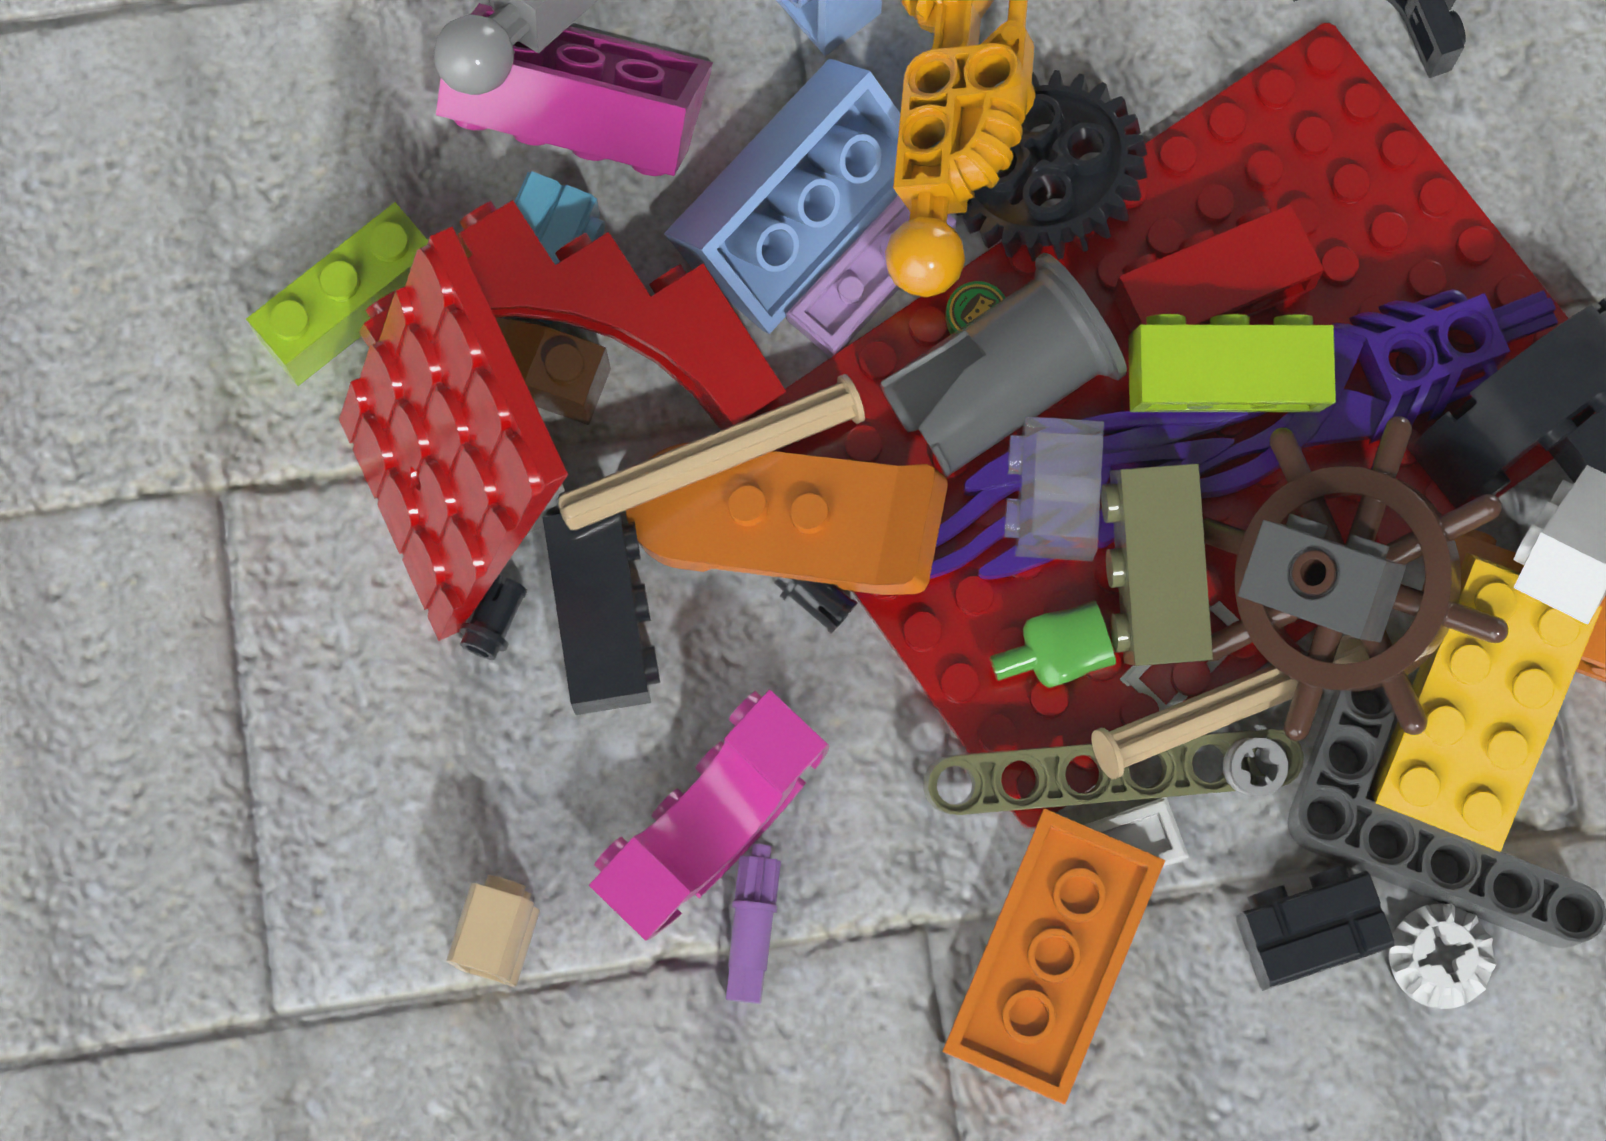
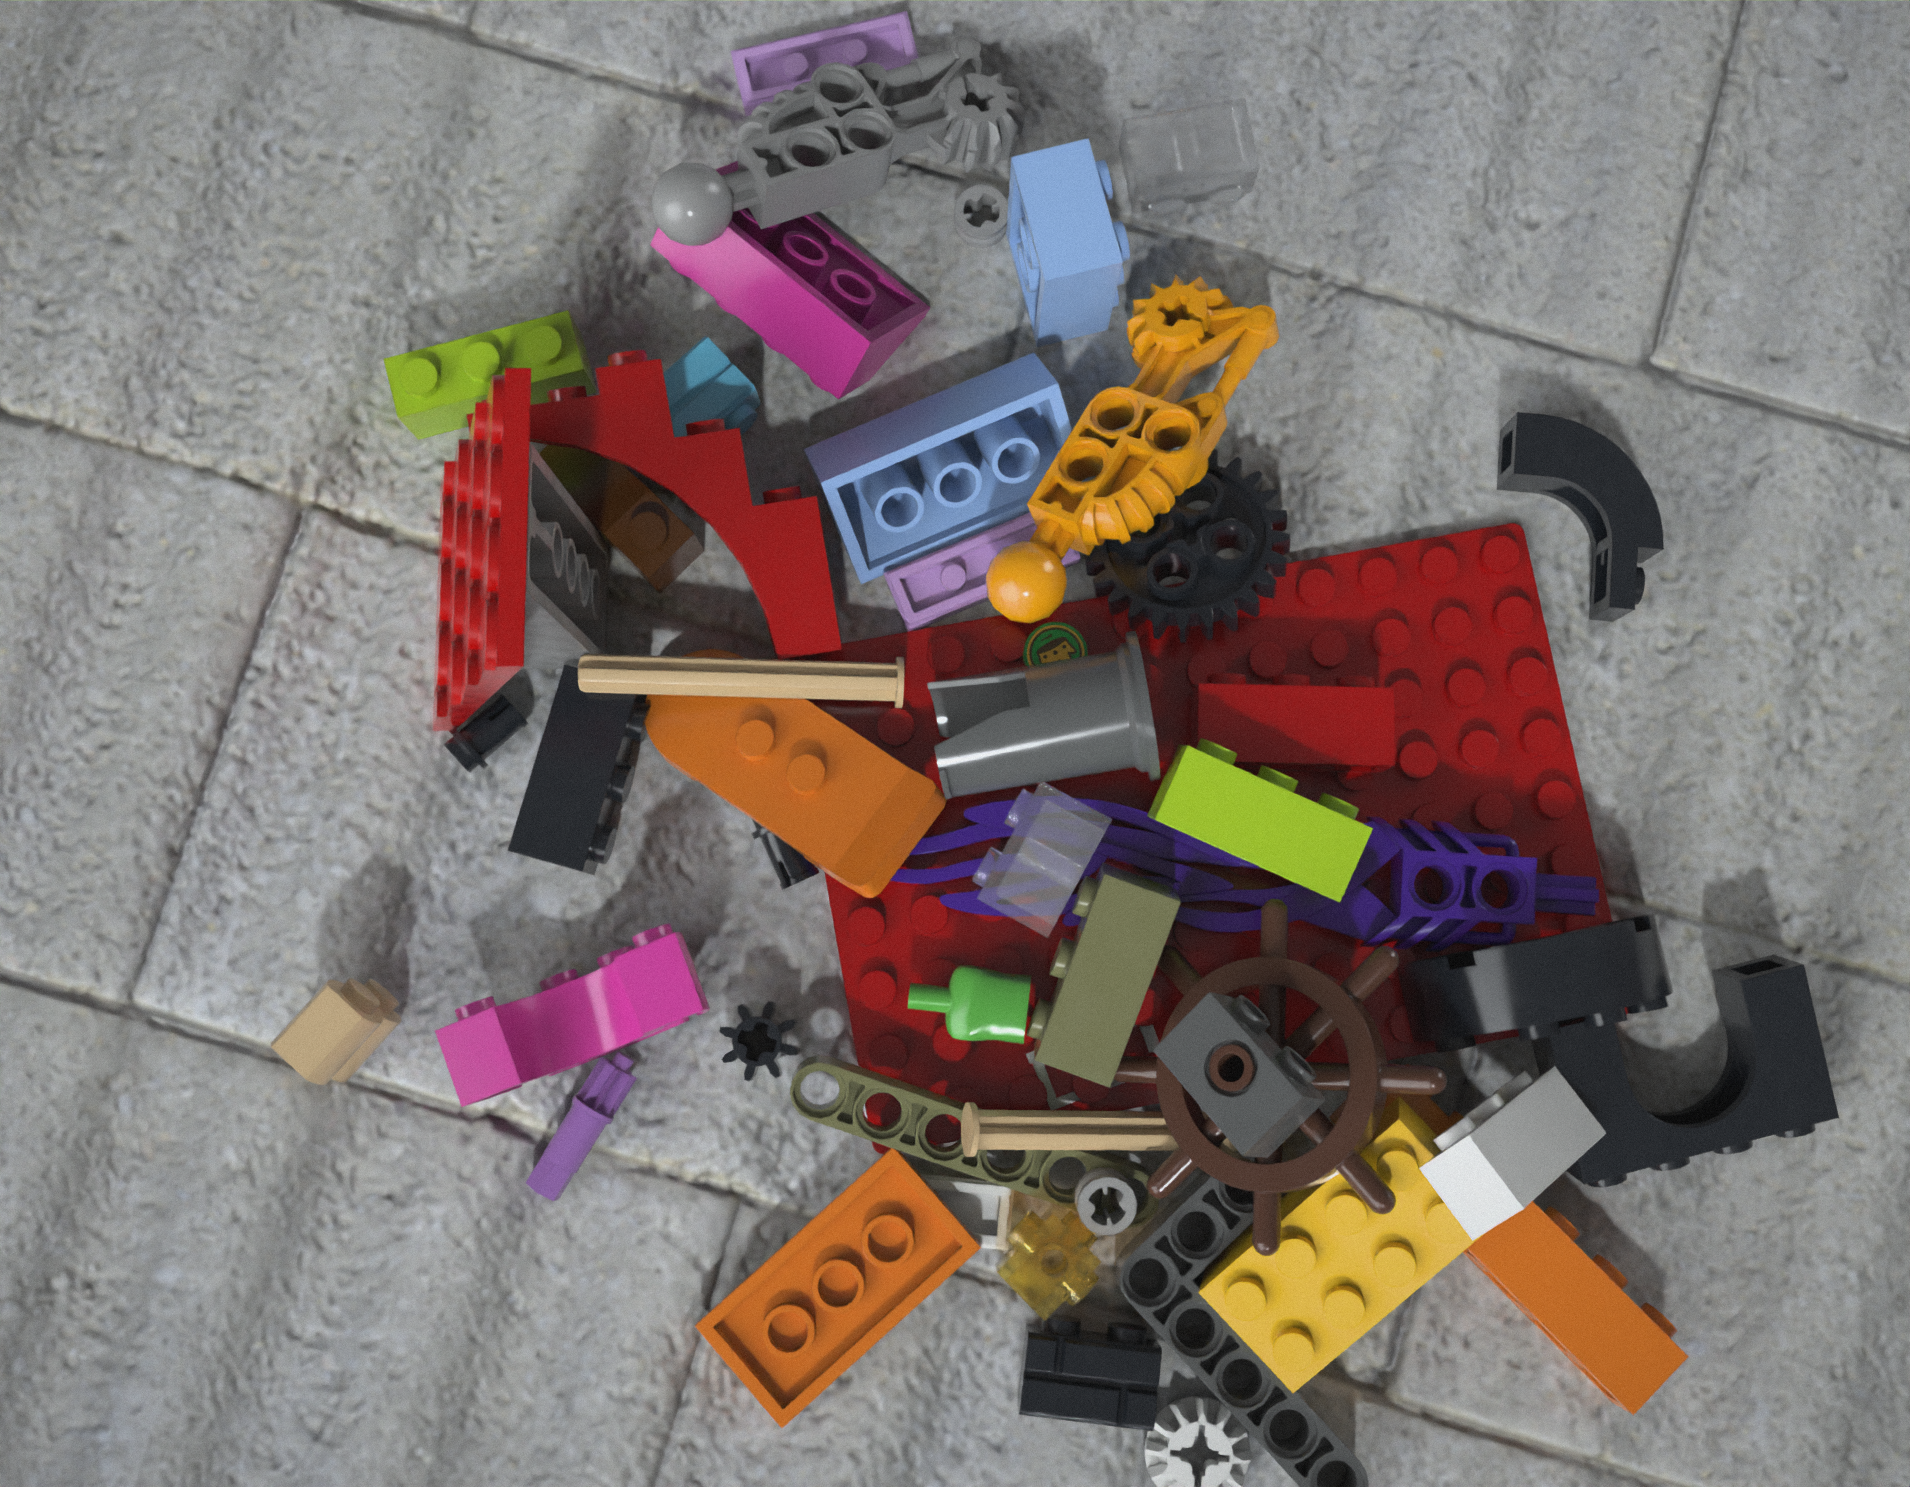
camera: 25 degrees right, 5 degrees up
(890, 761) = (744, 1050): none -> black gear
(1215, 859) = (1044, 1285): none -> clear yellow brick

